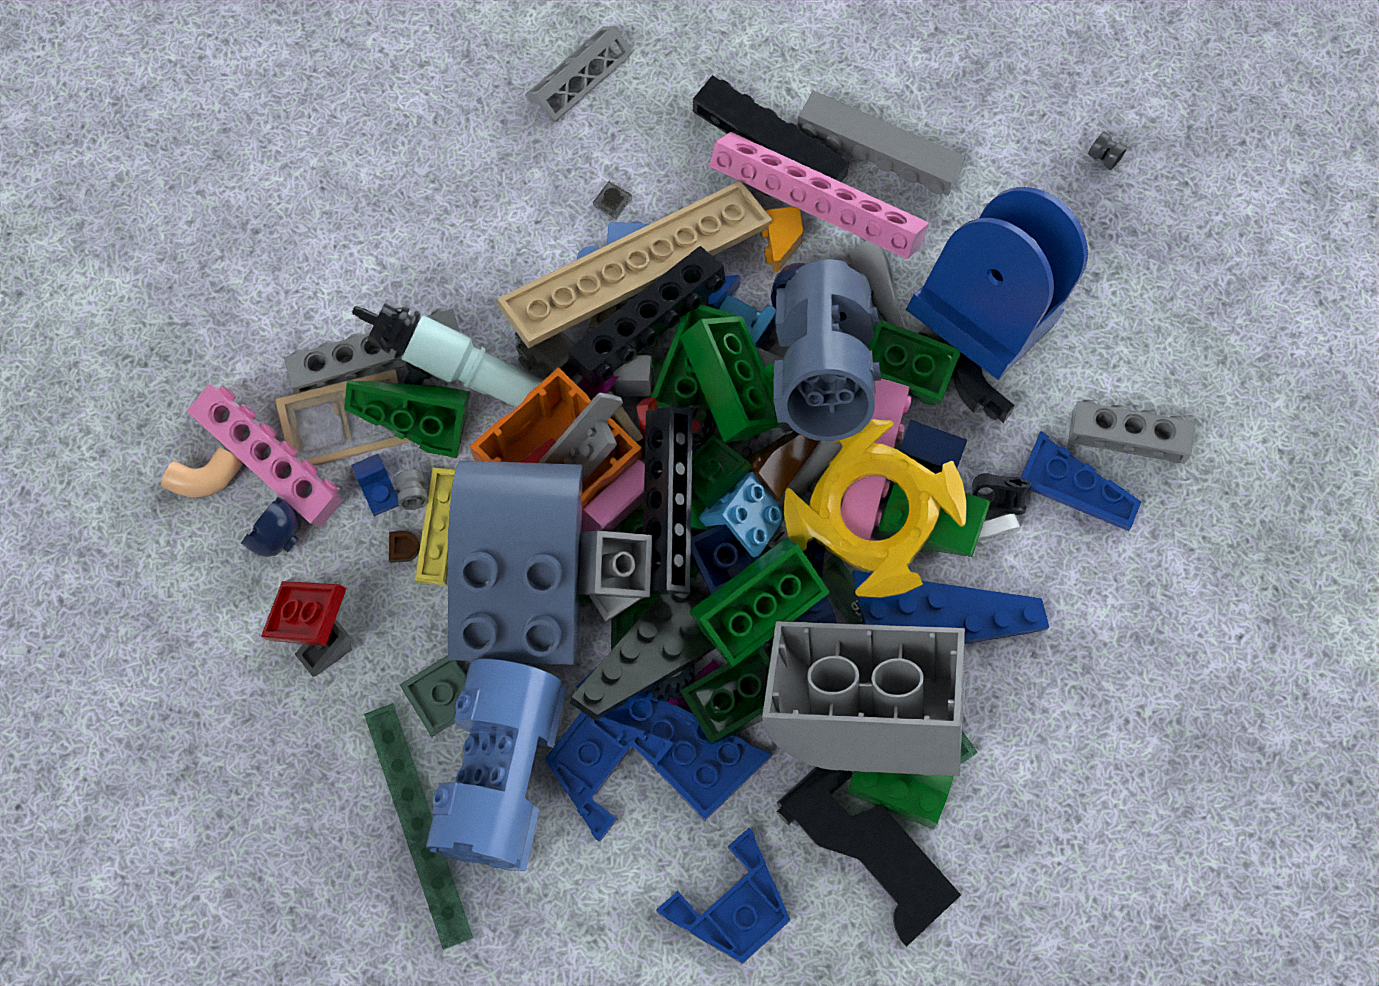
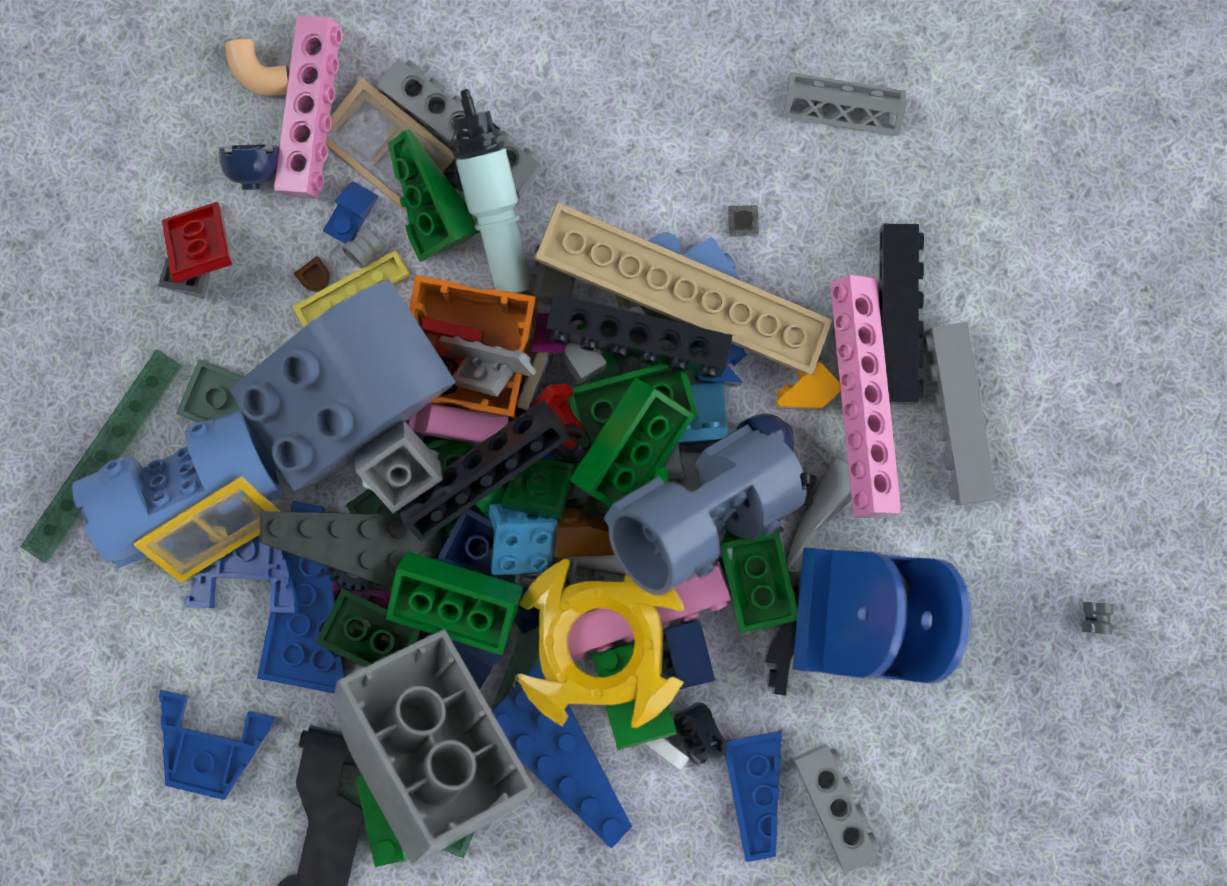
camera: 50 degrees right, 15 degrees up
(551, 761) = (207, 530): none -> clear door

